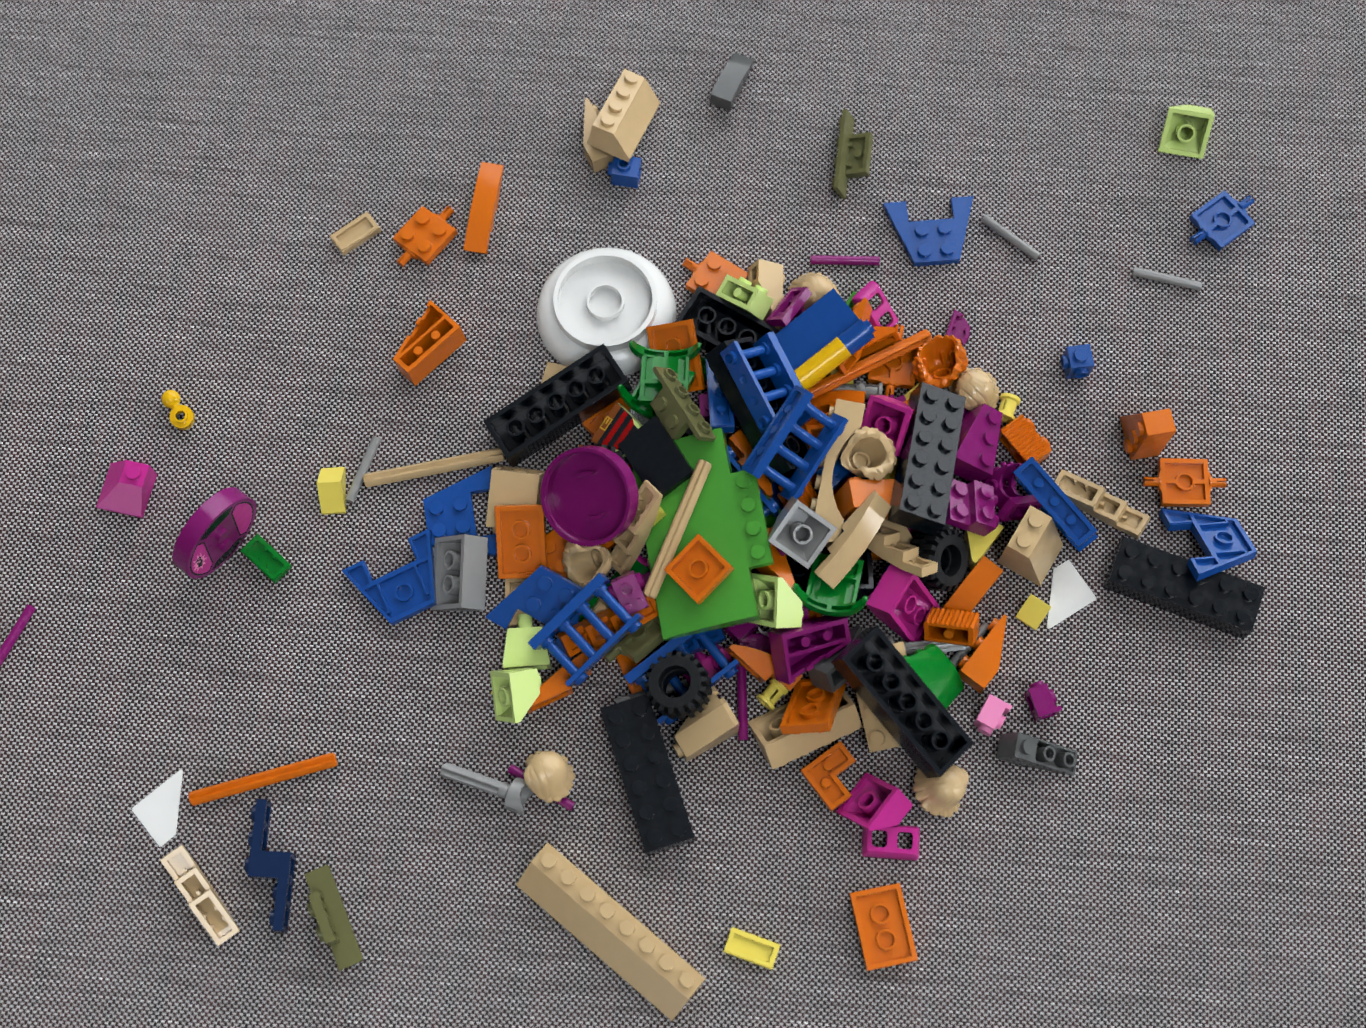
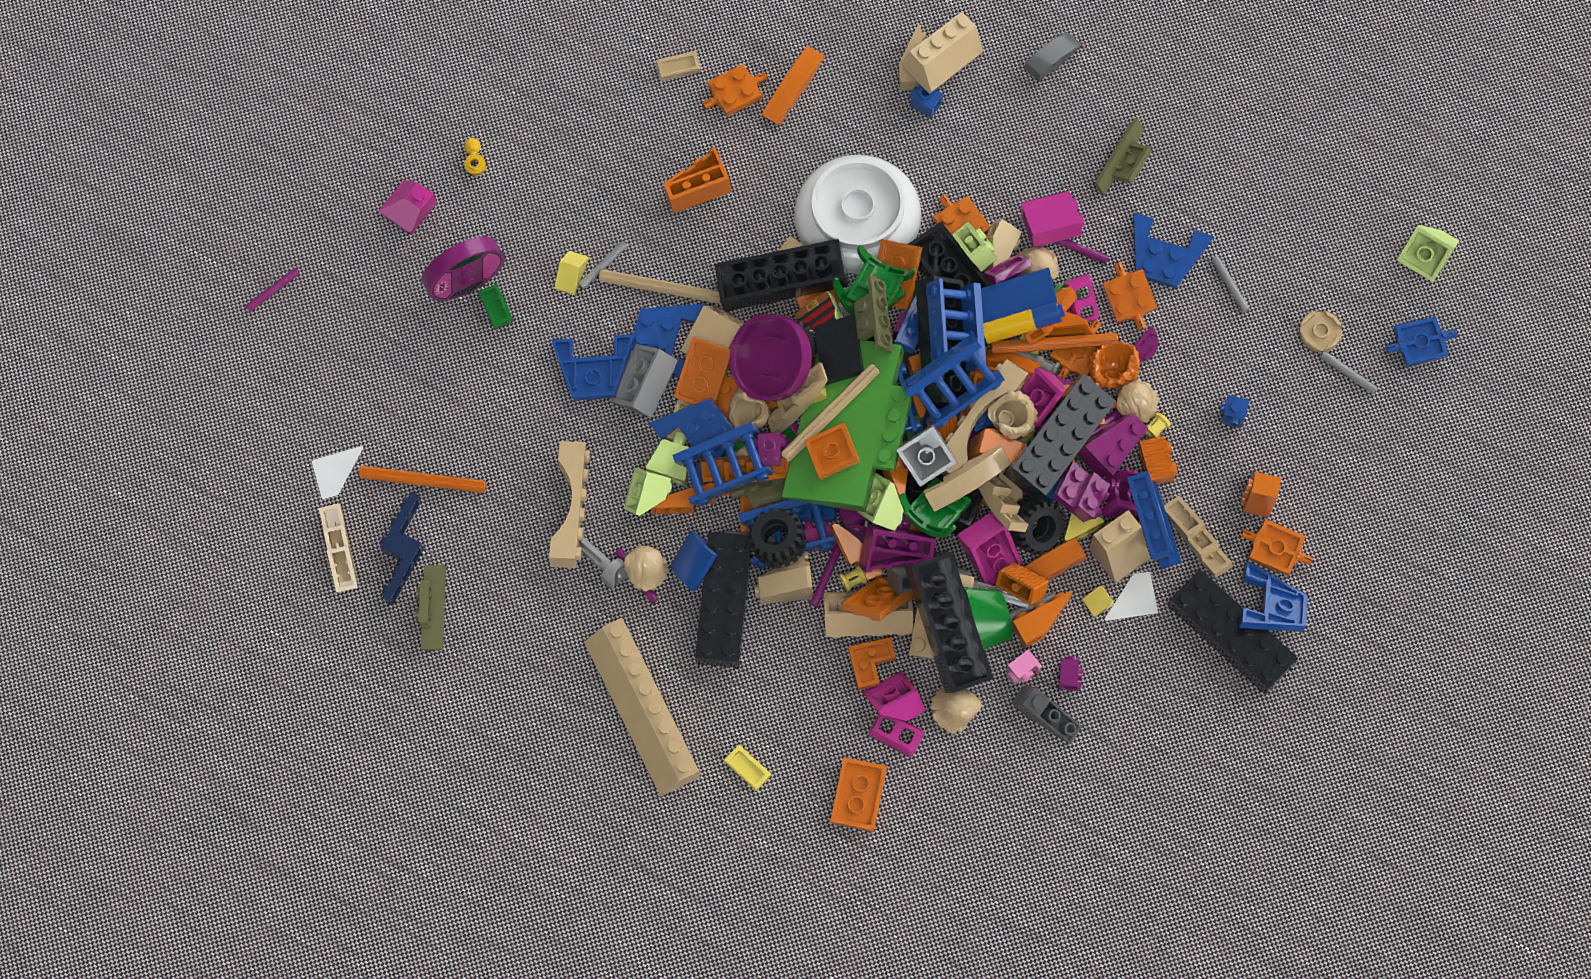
camera: 25 degrees right, 0 degrees up
(450, 787) = (565, 542): none -> tan arch
(597, 747) = (693, 561): none -> blue slope
(806, 240) = (1052, 219): none -> dark pink brick
(919, 287) = (1130, 296): none -> orange plate
(1119, 249) = (1320, 331): none -> tan tile

